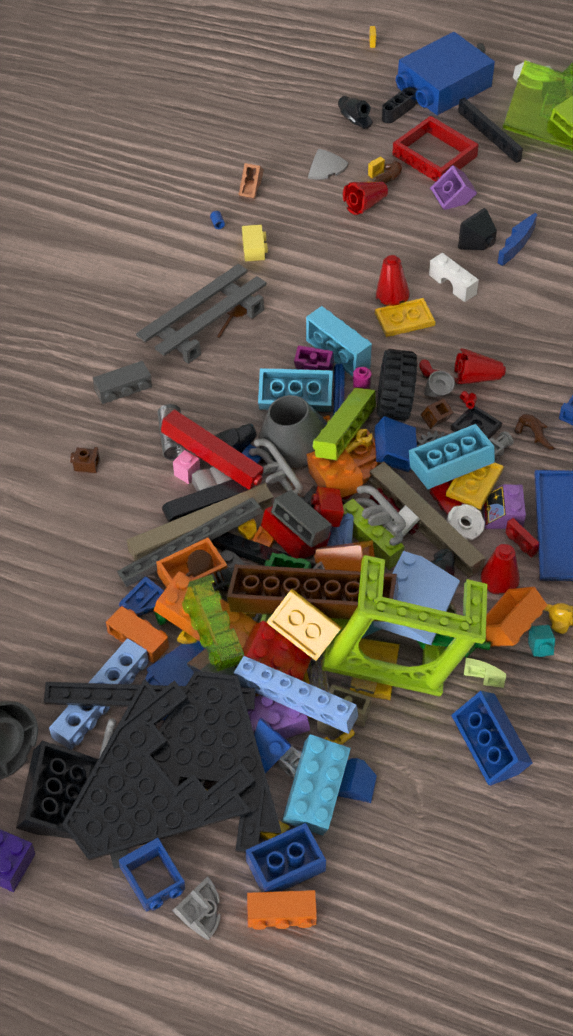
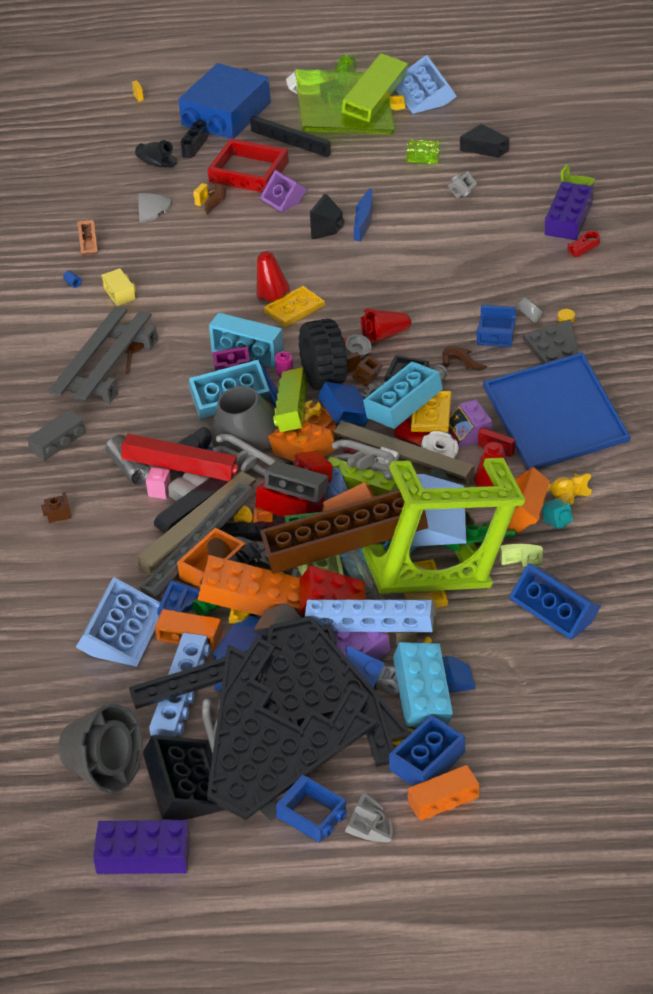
camera: 20 degrees left, 10 degrees down
(80, 606) = (120, 625): none -> light blue slope
(212, 623) = (264, 583): clear neon green wedge -> none
(304, 625) = (350, 556): tile -> none
(363, 195) = (202, 219): red cone -> none
(425, 398) = (352, 361): none -> reddish brown tile
(463, 283) = (334, 261): white arch -> none
(469, 399) = (390, 351): red arm -> none

